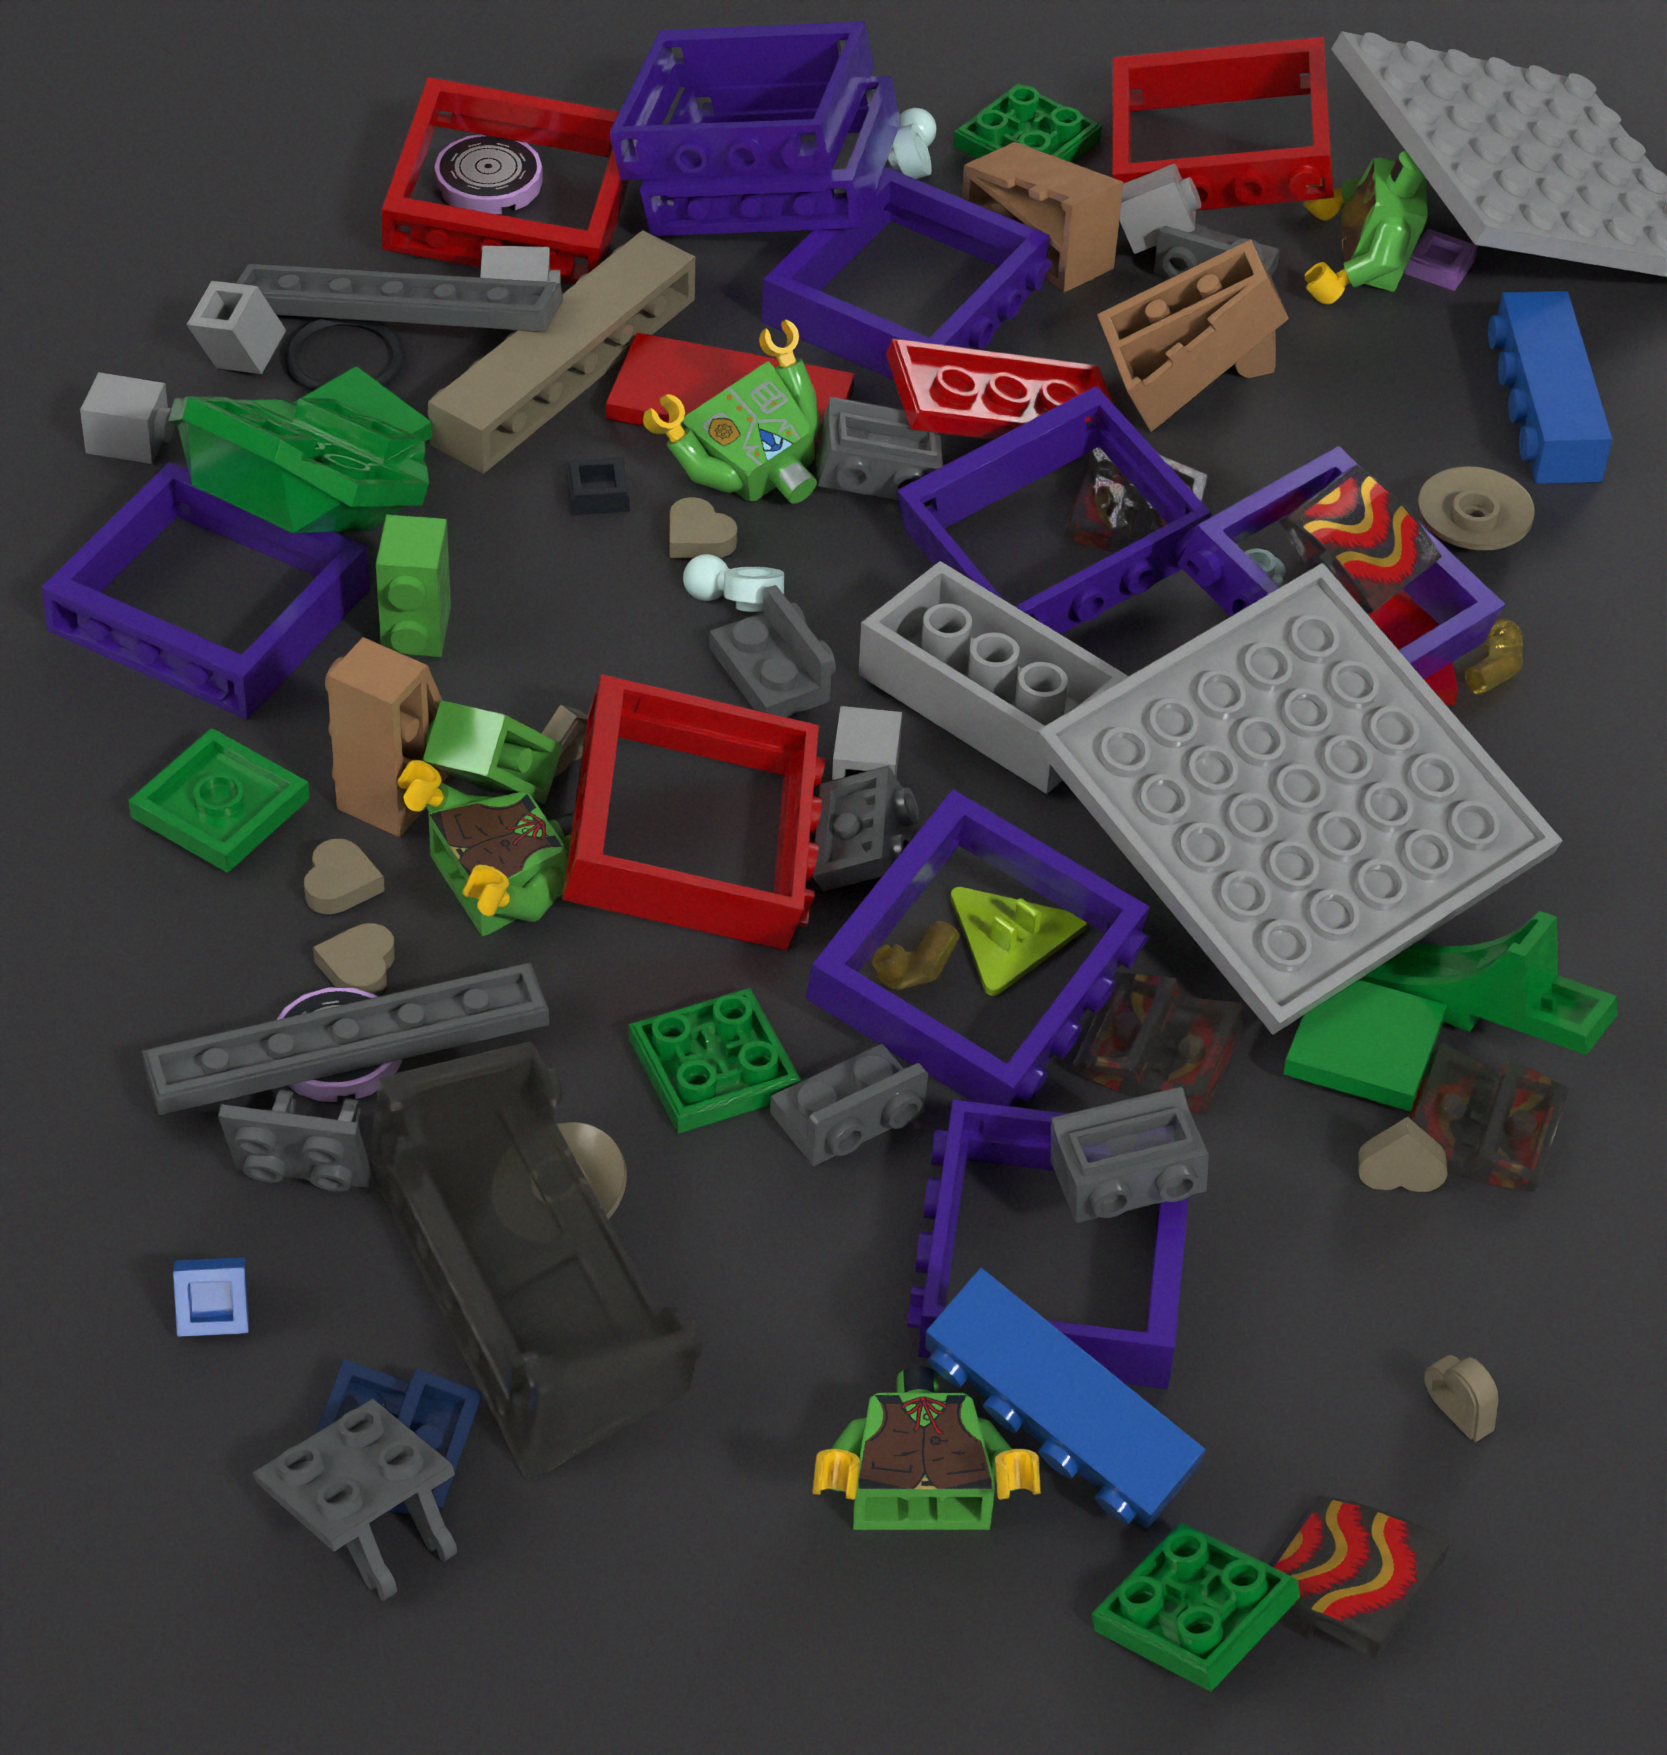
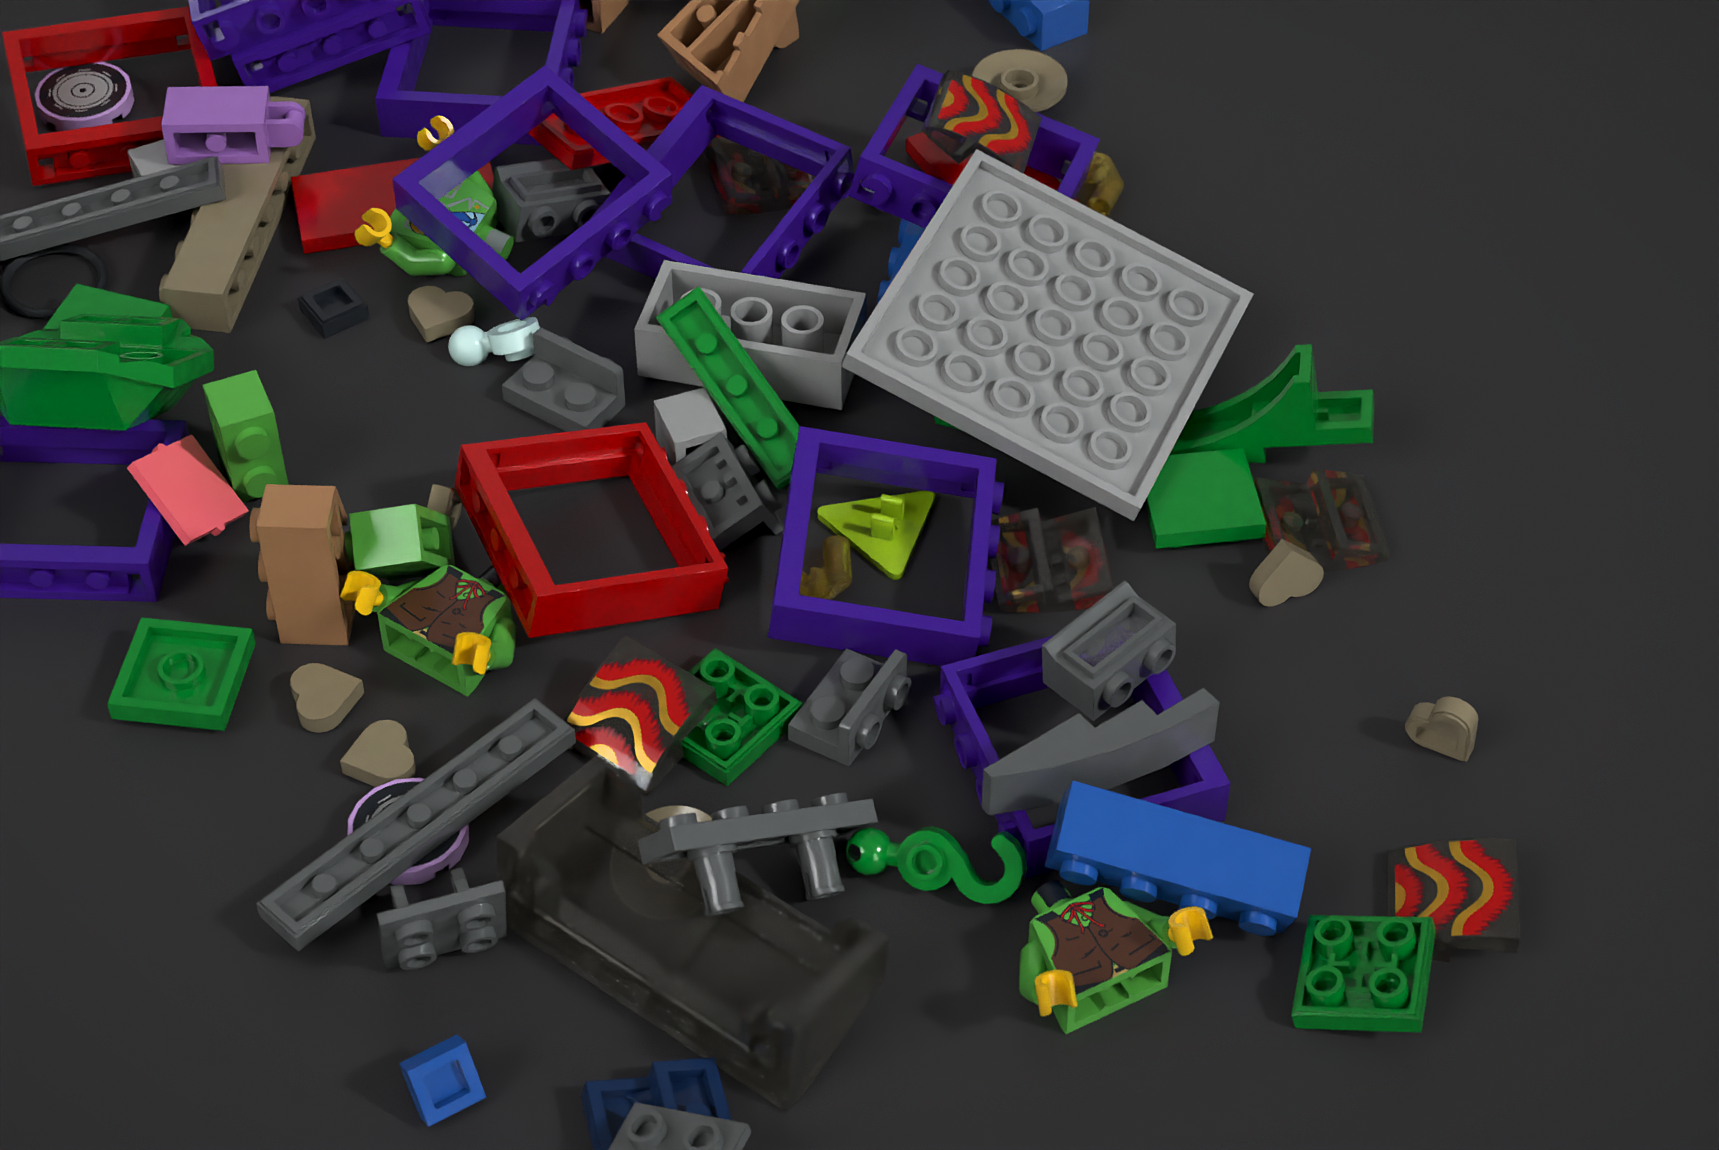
camera: 25 degrees left, 0 degrees up
(324, 612) = (187, 489): none -> coral piece
(587, 253) = (228, 123): none -> medium lavender brick
(622, 1173) = (733, 830): none -> dark grey plate
(623, 1022) = (638, 712): none -> slope
(821, 364) = (487, 136): none -> dark purple window
(827, 1293) = (934, 857): none -> green piece
(930, 707) = (733, 382): none -> green tile
(1045, 1260) = (1100, 756): none -> dark grey slope

